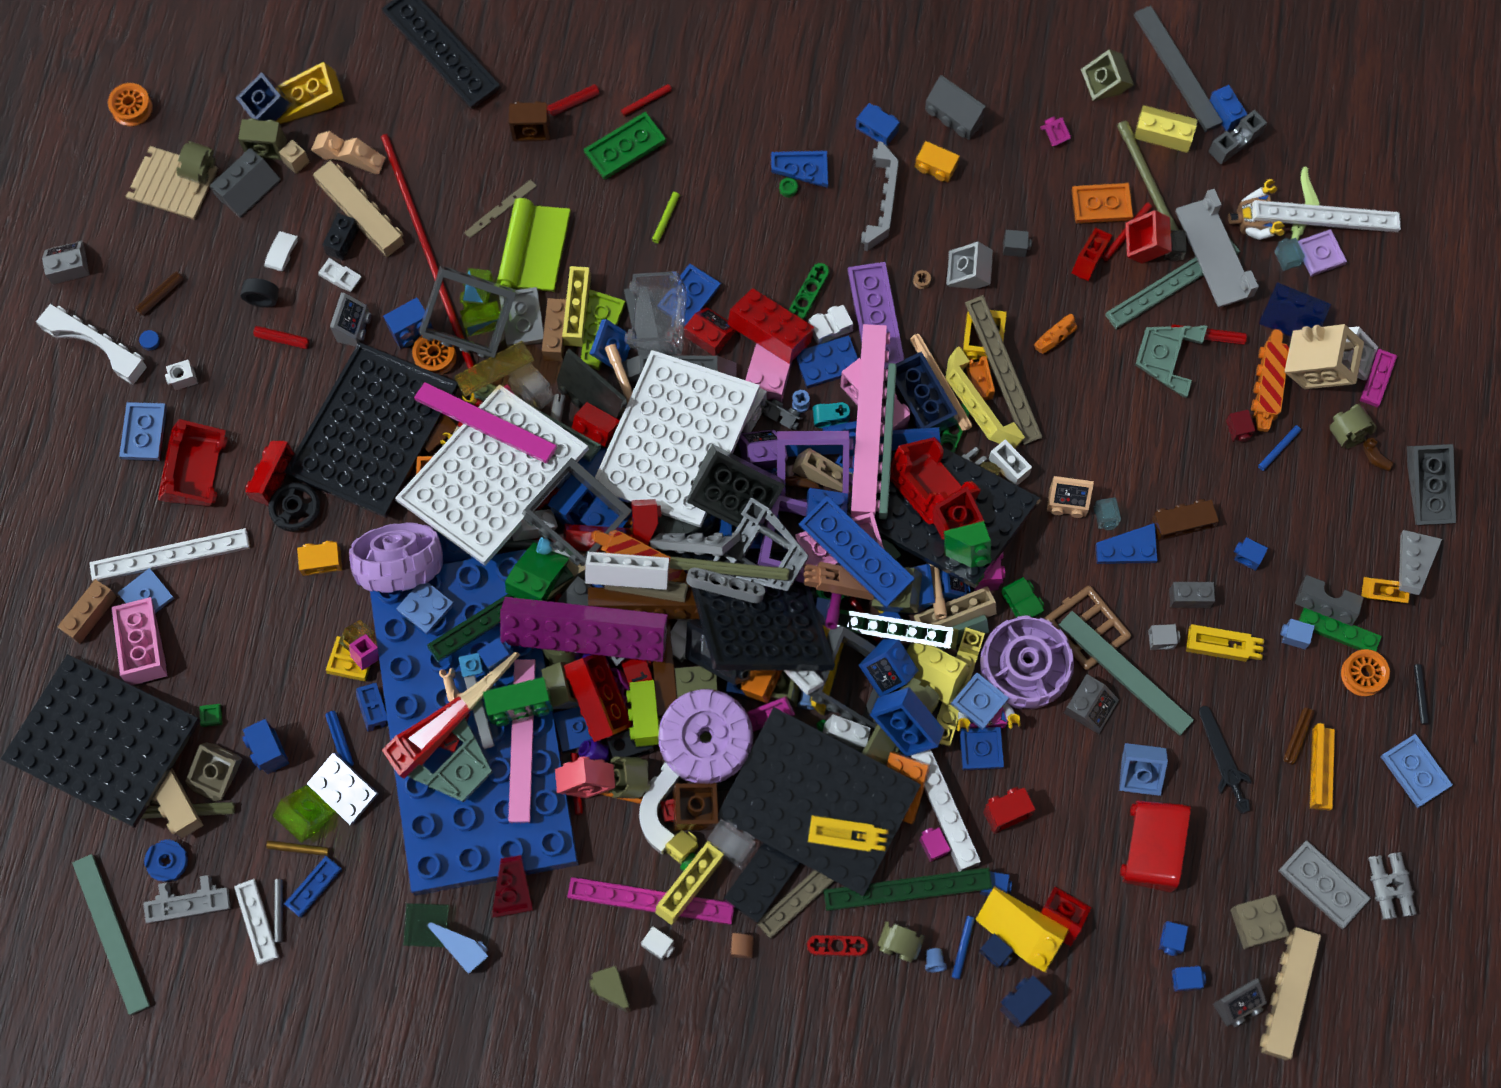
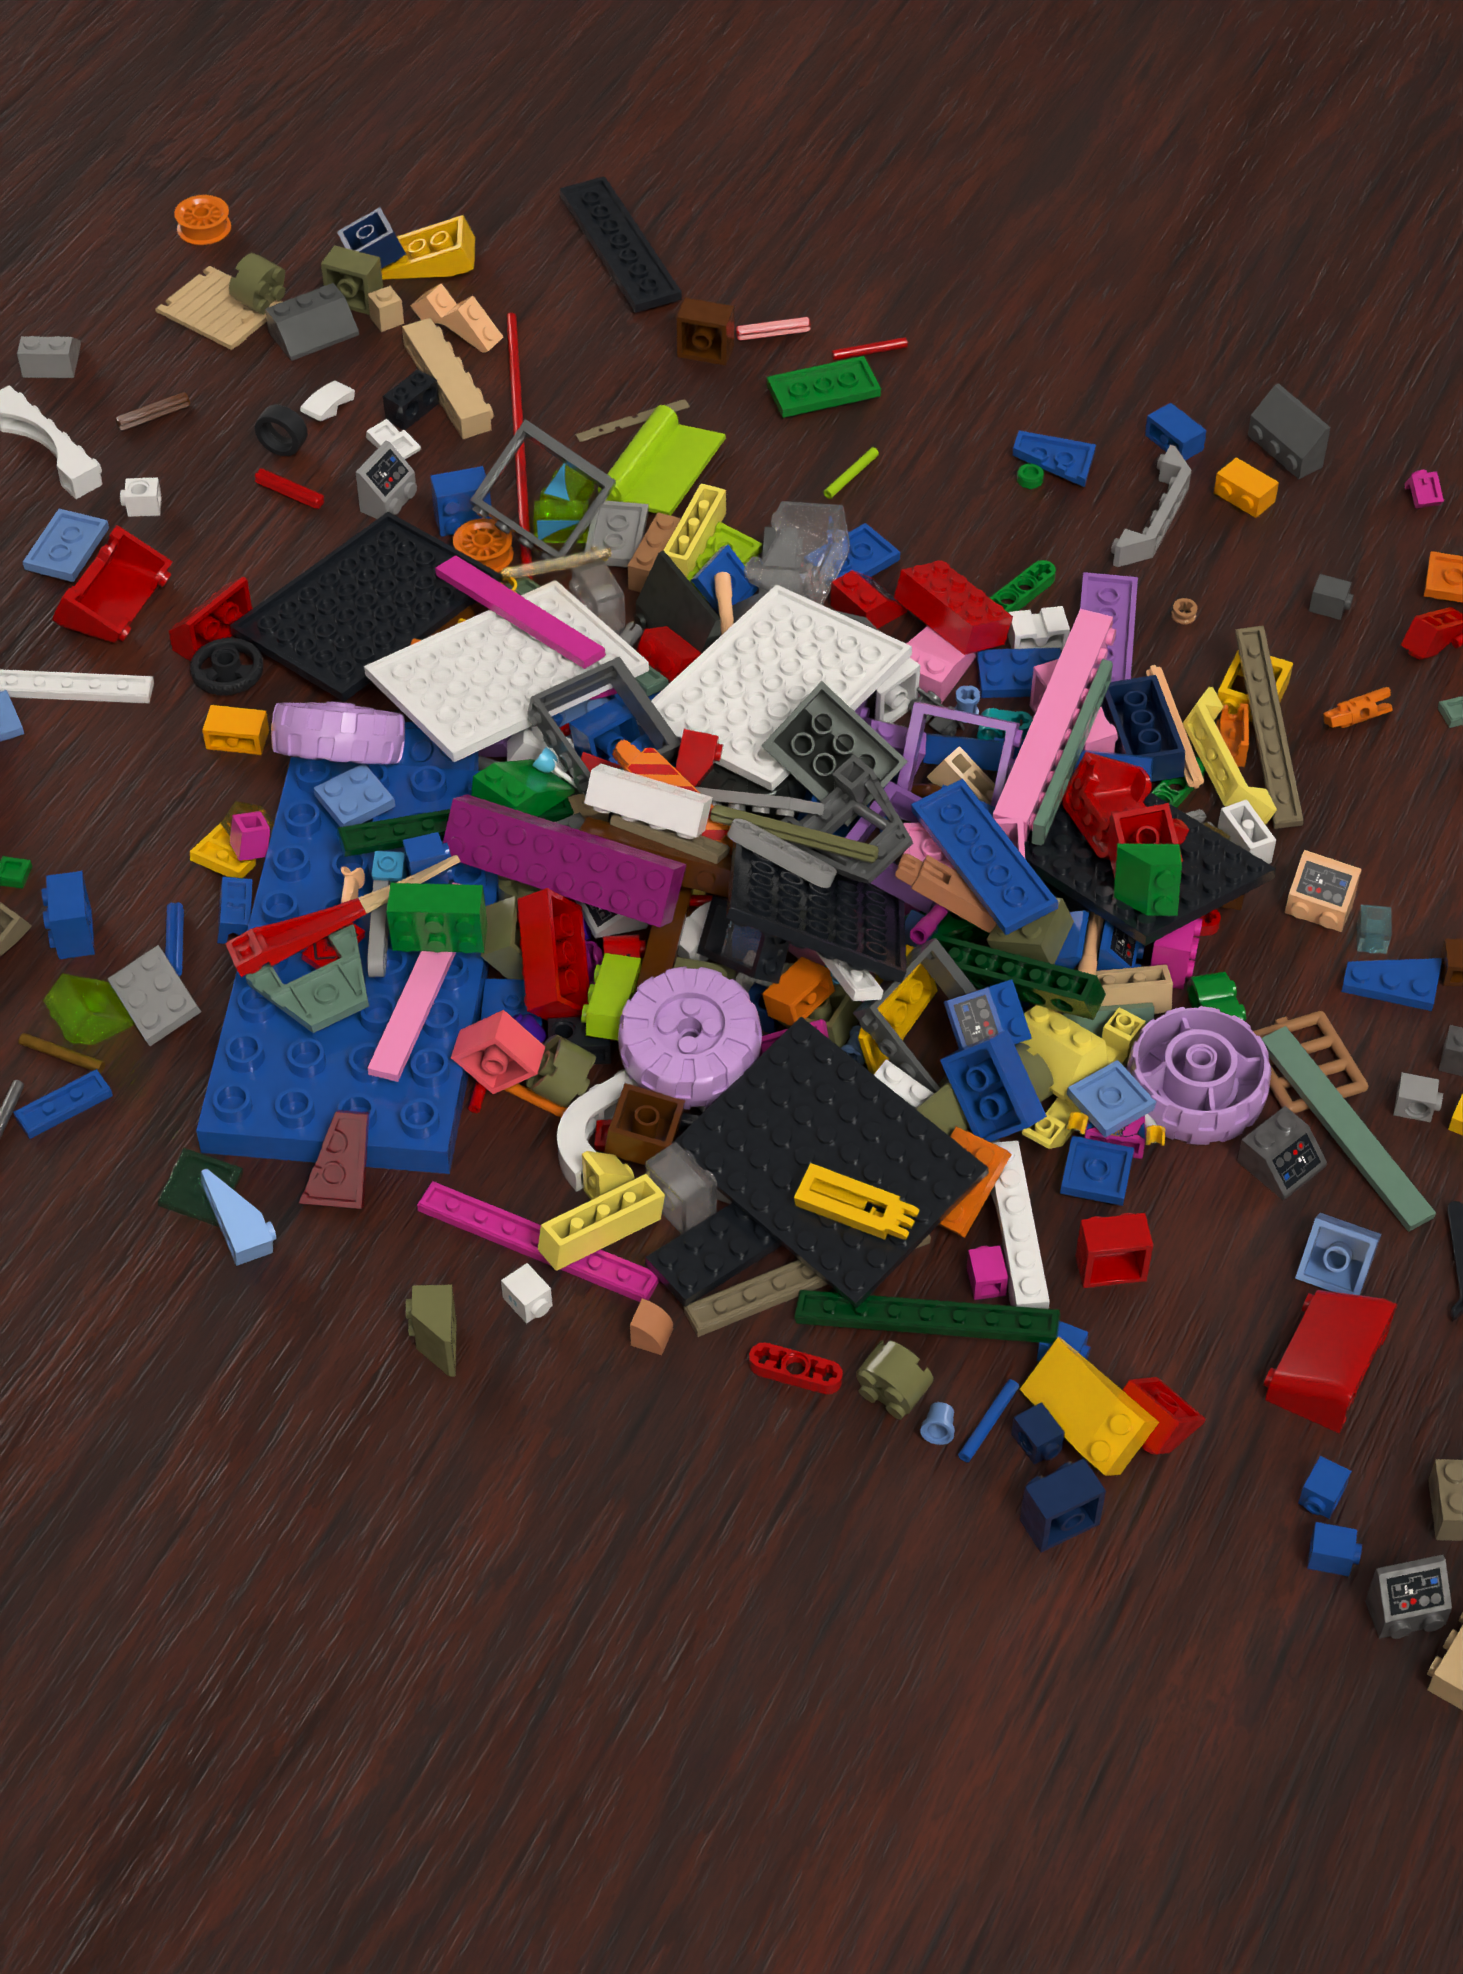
camera: 15 degrees right, 20 degrees down
(149, 340) = (118, 456): blue tile -> none
(970, 266) = (1258, 604): light grey slope -> none

